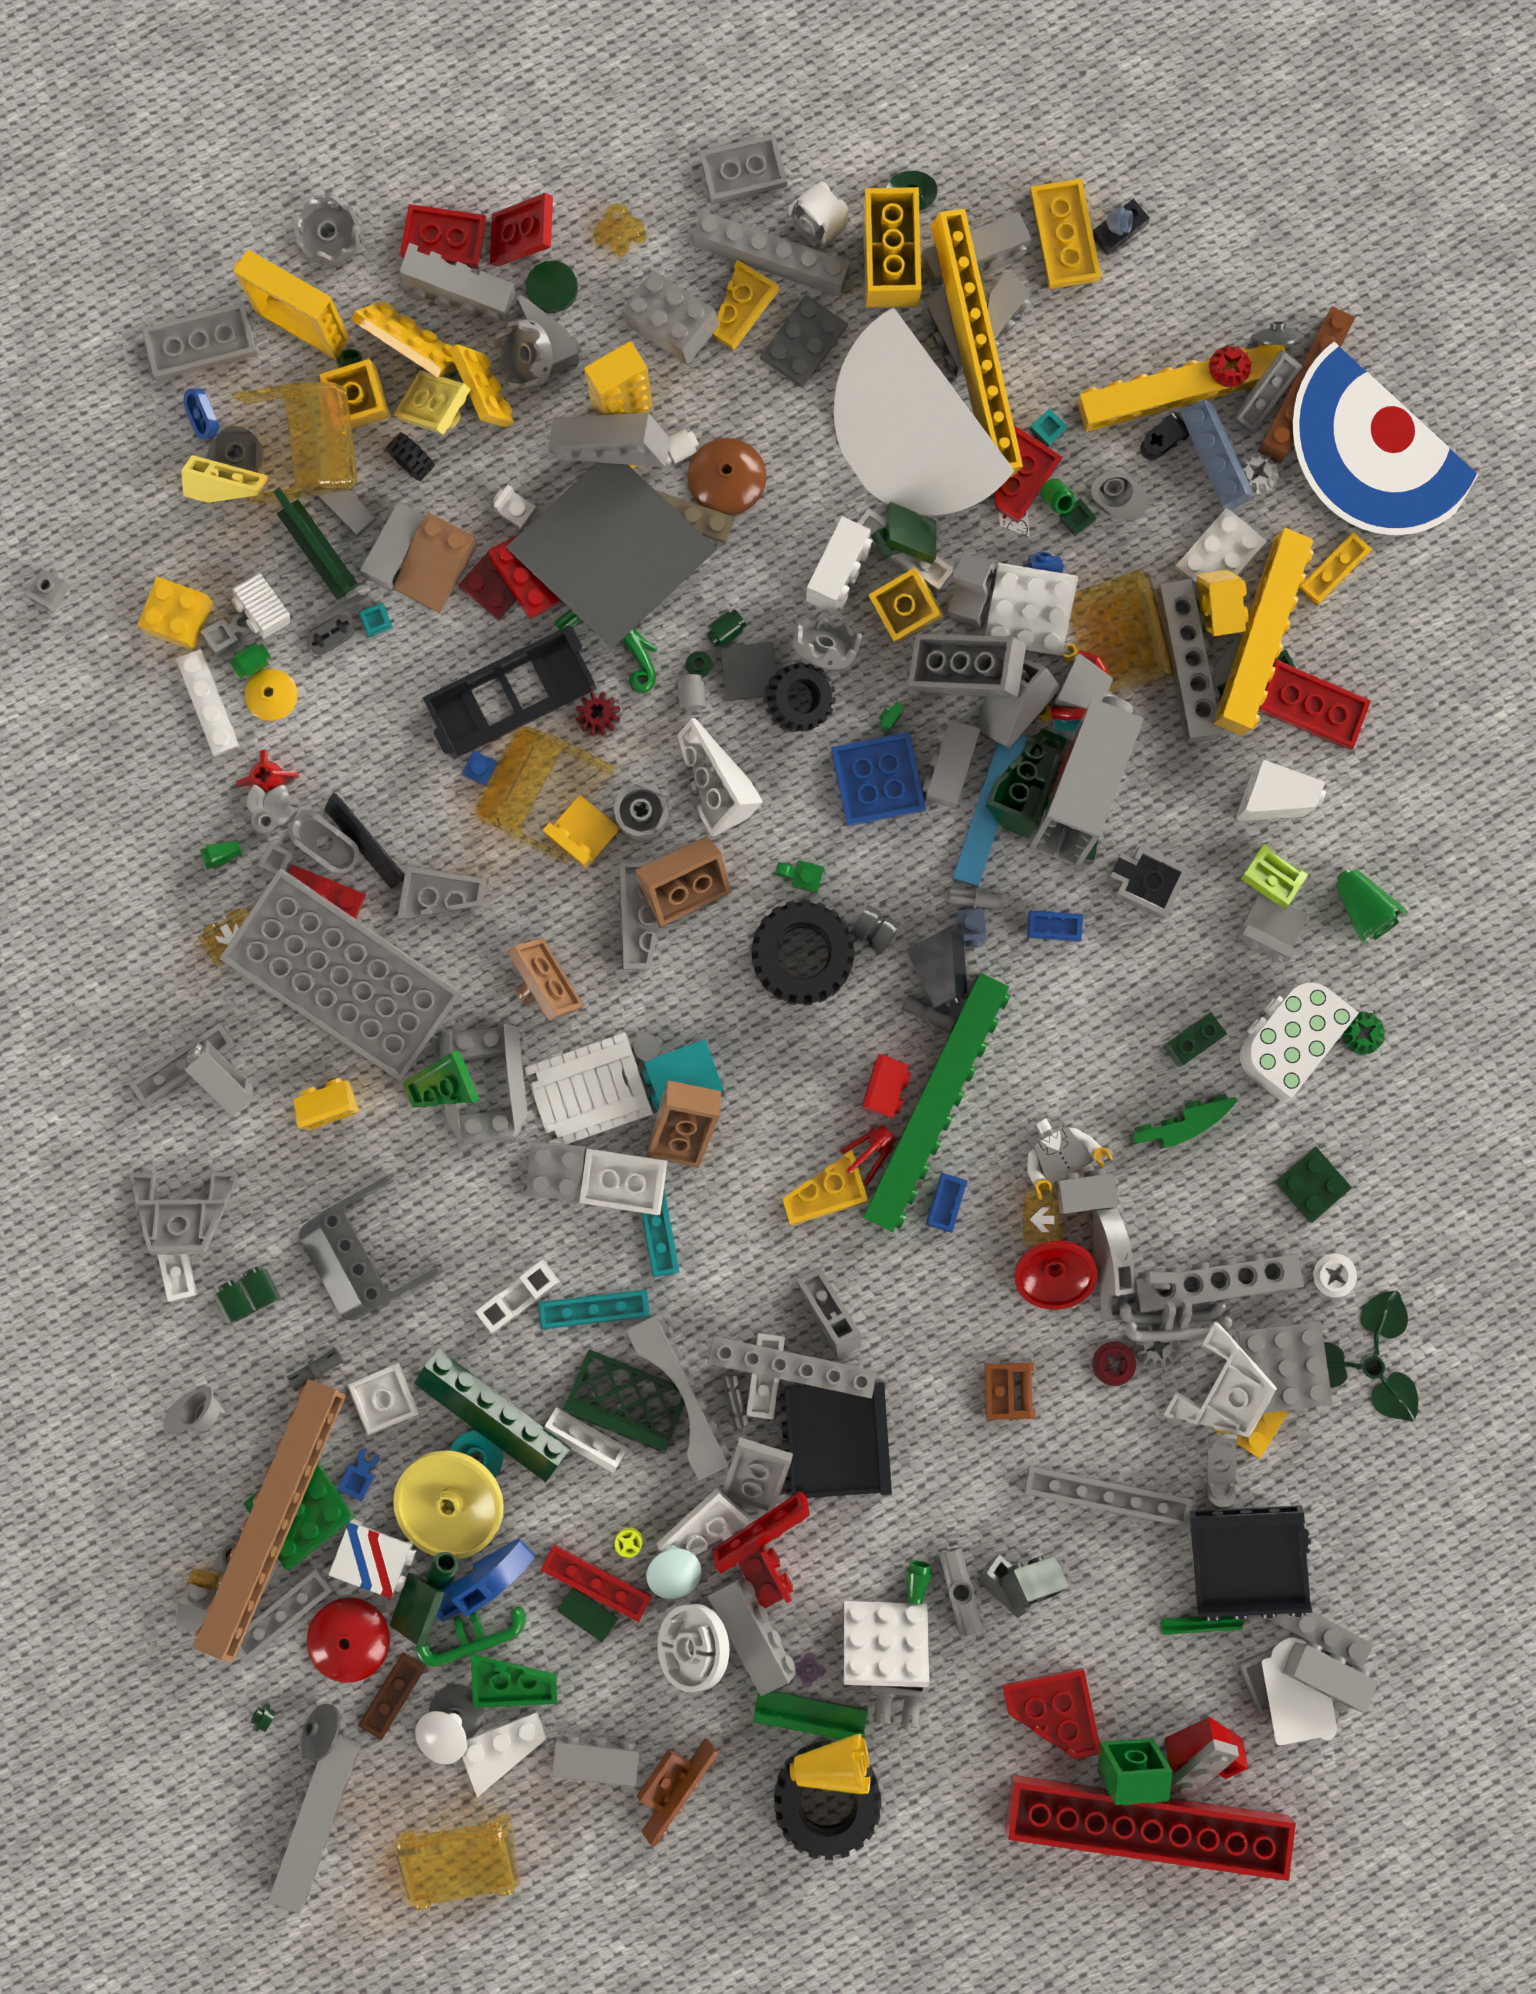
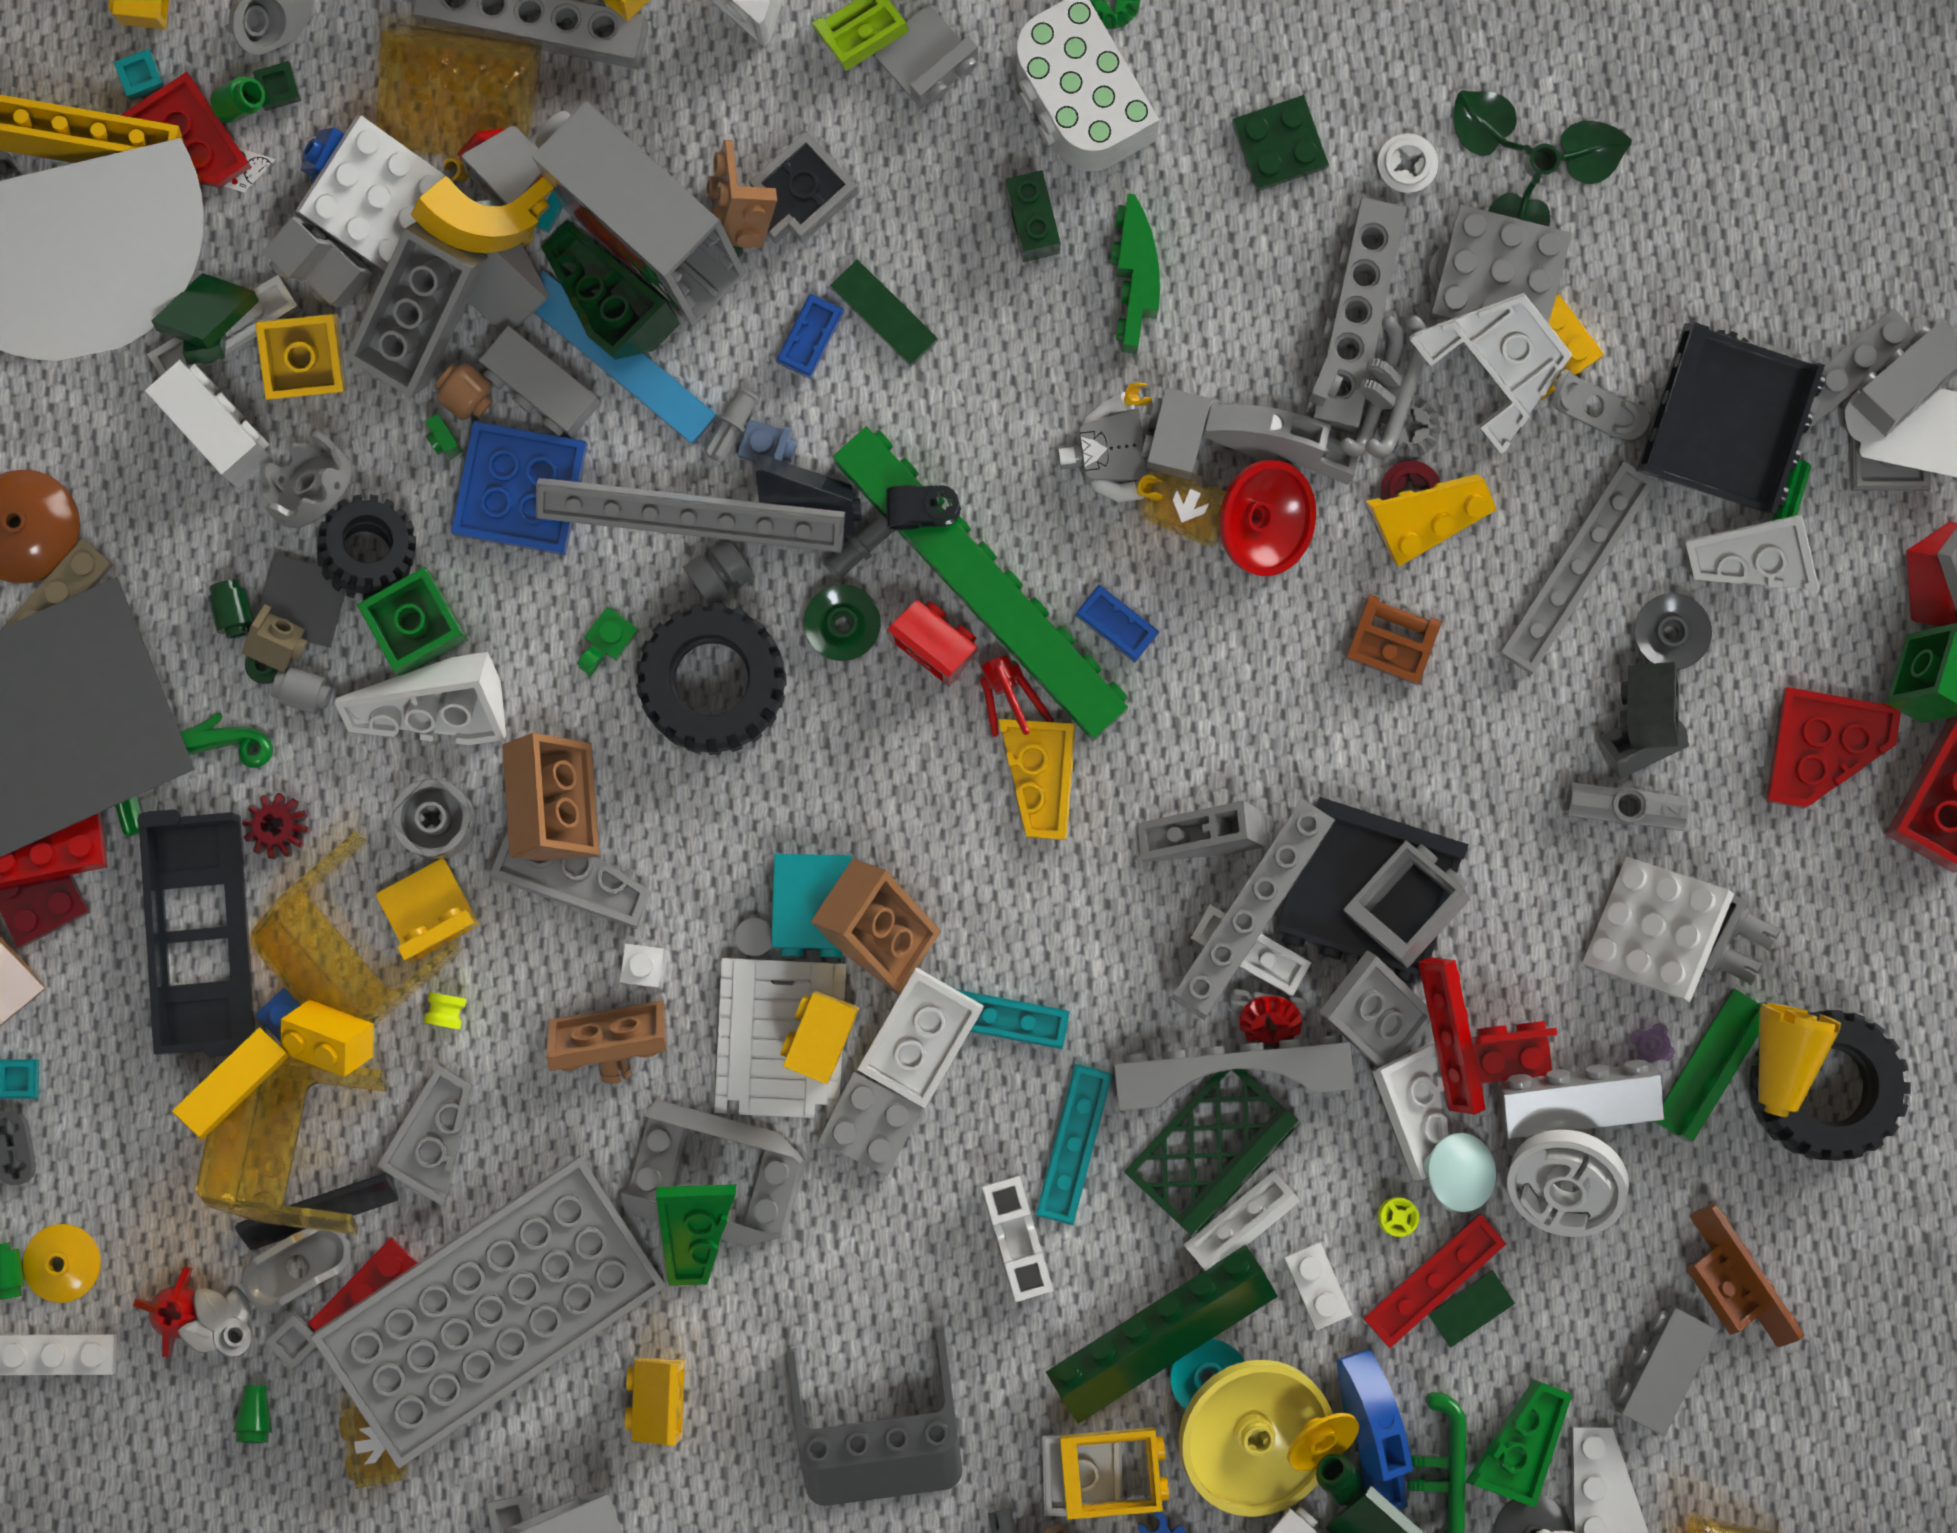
camera: 65 degrees left, 0 degrees up
(395, 783) = (254, 1147): none -> clear yellow windscreen
(414, 1441) = (1158, 1485): none -> yellow window
(420, 753) = (230, 1083): none -> yellow tile
(463, 1547) = (1320, 1438): none -> yellow dish
(474, 801) = (327, 1038): none -> yellow brick
(522, 869) = (444, 1010): none -> neon yellow wheel
(563, 1506) = (1317, 1286): none -> white plate
(594, 1116) = (820, 1036): none -> yellow brick
(599, 984) = (643, 966): none -> white brick
(715, 664) = (274, 640): none -> dark tan brick
(732, 1411) = (1281, 1011): none -> red gear
(763, 746) = (412, 622): none -> green brick
(843, 1446) = (1380, 884): none -> light grey window
(874, 1008) = (838, 603): none -> dark green dish
(903, 896) = (690, 515): none -> light grey tile
(917, 1580) = (1592, 857): green cone -> none
(926, 718) = (464, 391): none -> medium nougat head
(966, 1039) = (913, 507): none -> black piece
(1033, 683) = (478, 227): none -> yellow arch
(1090, 968) = (884, 313): none -> dark green tile
(1099, 1381) = (1428, 517): none -> yellow wing
(1104, 1582) = (1682, 614): none -> dark grey dish
(1115, 846) = (741, 209): none -> medium nougat bracket
(1166, 1616) = (1760, 554): none -> white wing

